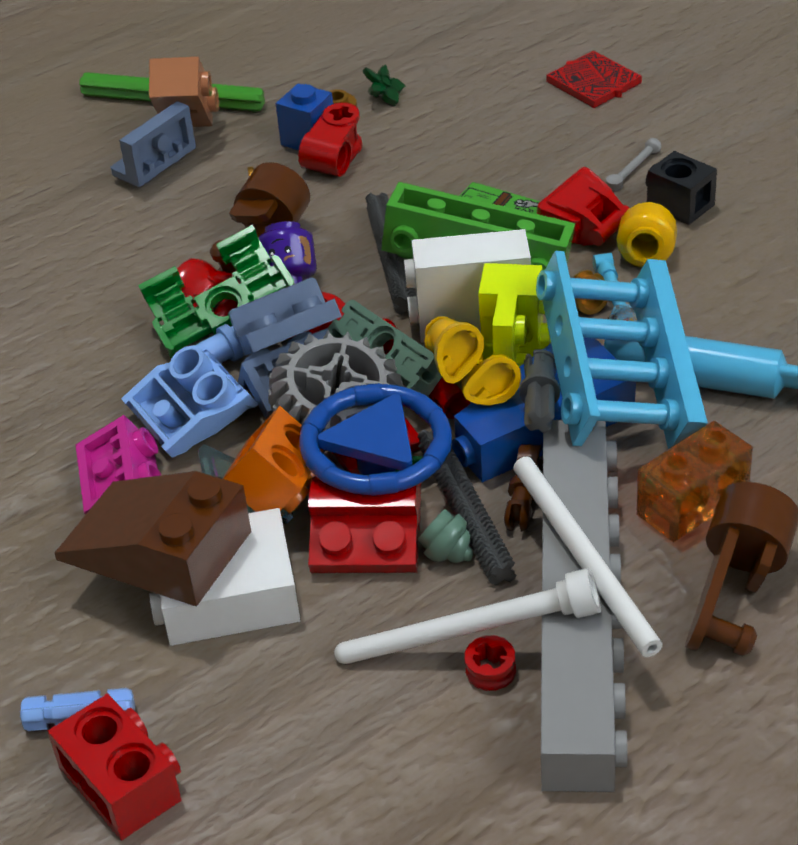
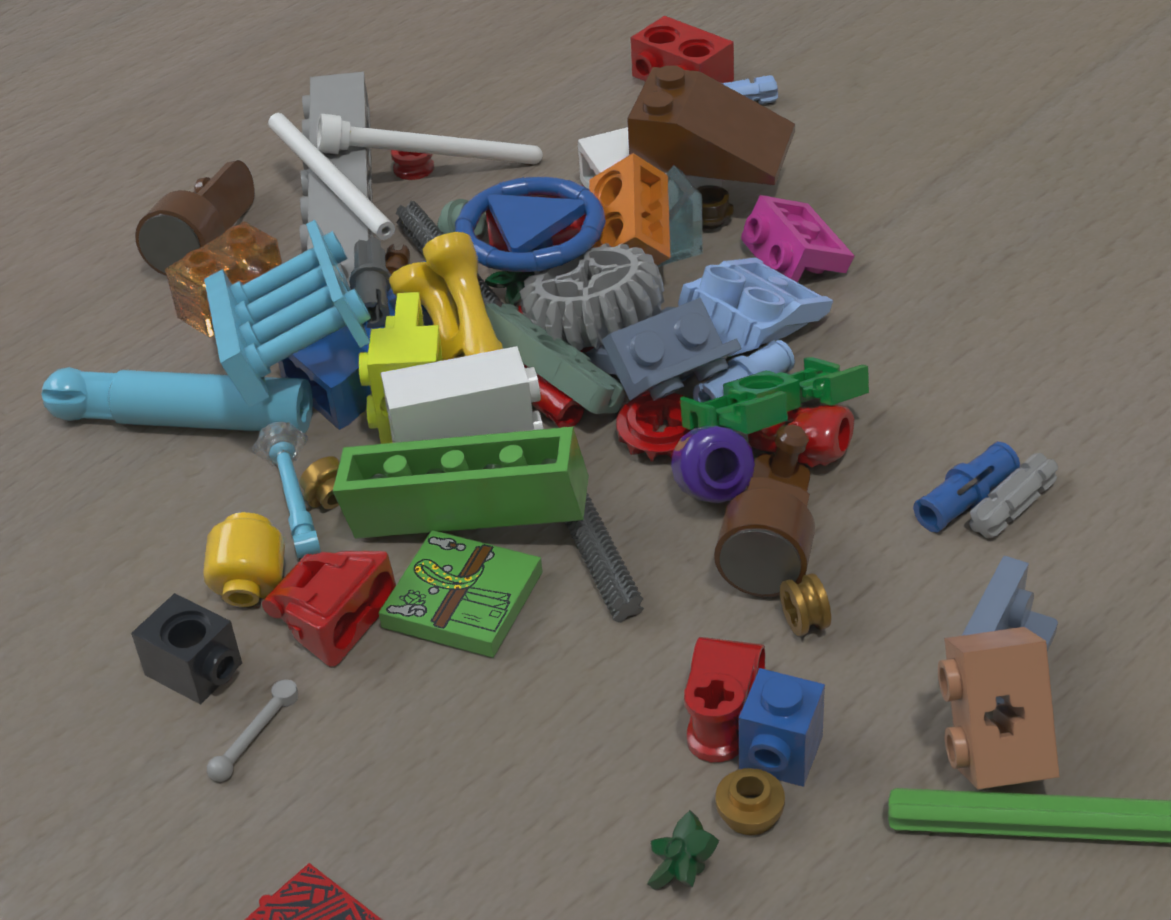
camera: 170 degrees right, 0 degrees up
(80, 246) = (1013, 495): none -> light grey axle
(109, 251) = (943, 501): none -> blue pin

